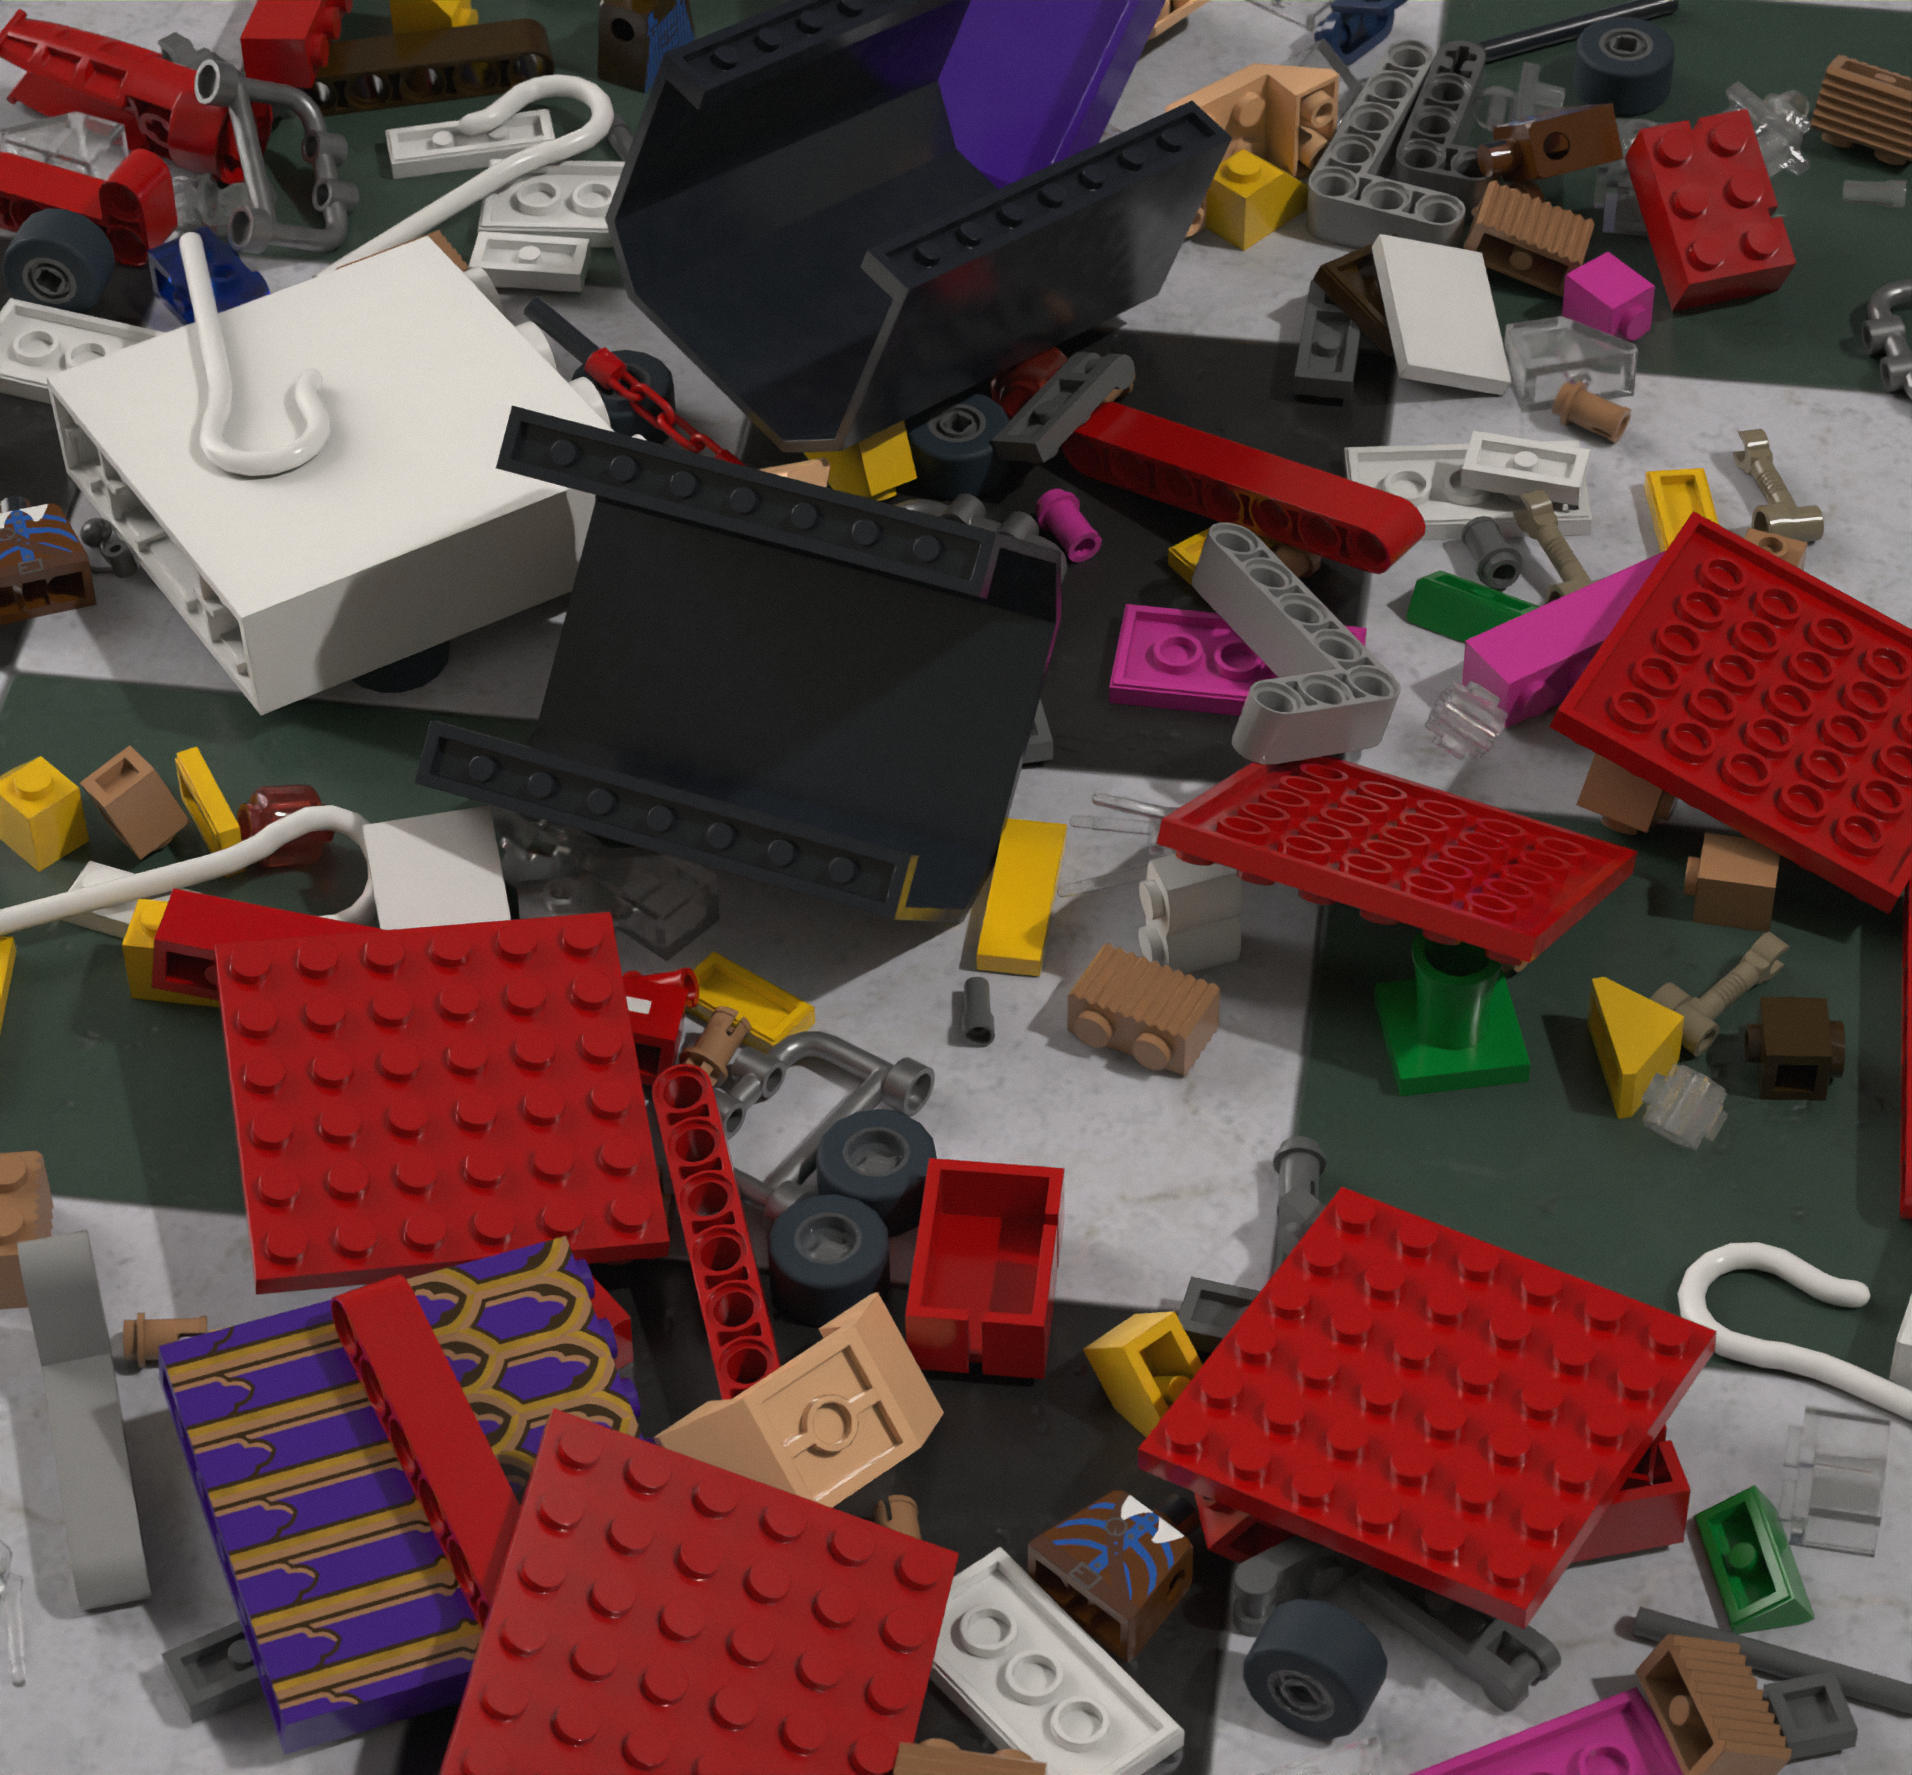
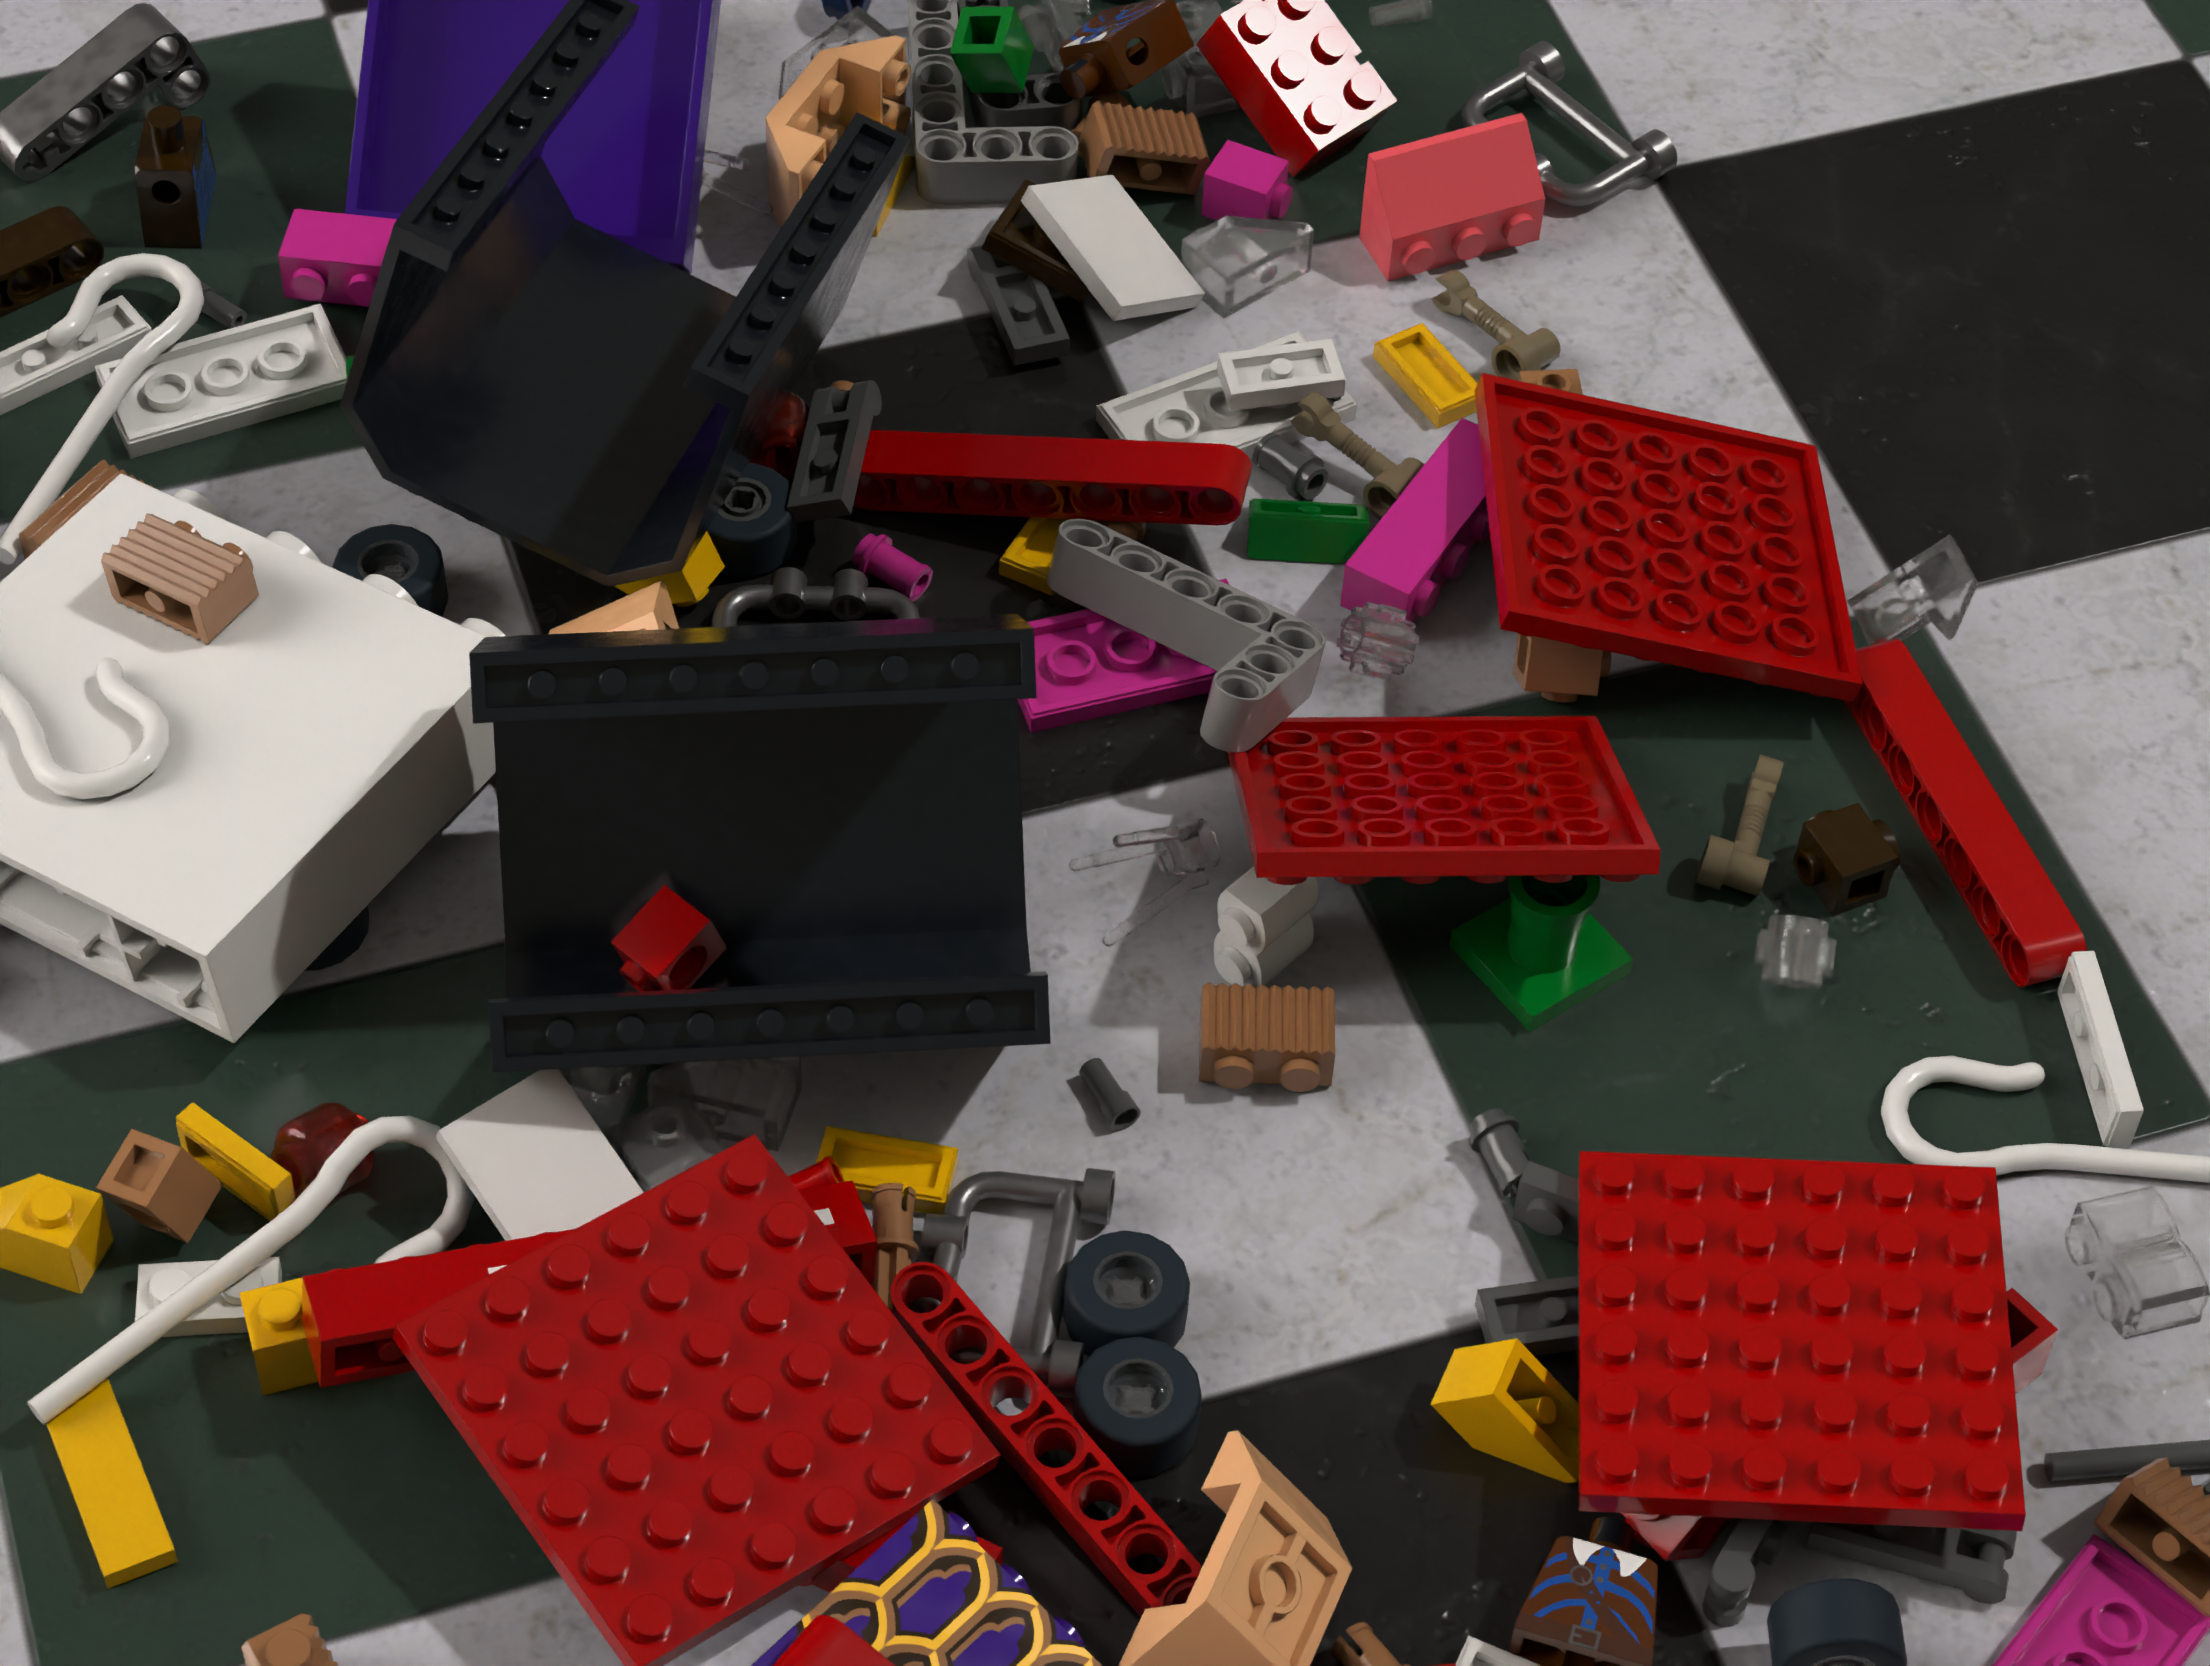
camera: 30 degrees left, 5 degrees up
(409, 323) = (180, 577): none -> medium nougat brick
(532, 261) = (205, 460): white plate -> none
(609, 370) = (380, 555): red piece -> none
(662, 751) = (667, 944): none -> red brick
(986, 1267) = (1283, 1365): red piece -> none
(1022, 897) = (1079, 962): yellow tile -> none
(1417, 106) = (992, 49): none -> green brick
(1590, 411) = (1292, 299): medium nougat pin -> none
(1631, 1041) = (1706, 905): yellow slope -> none
(1733, 882) = (1699, 717): medium nougat brick -> none
(1753, 1563) = (2110, 1373): green slope -> none
(1795, 362) = (1452, 197): none -> coral slope

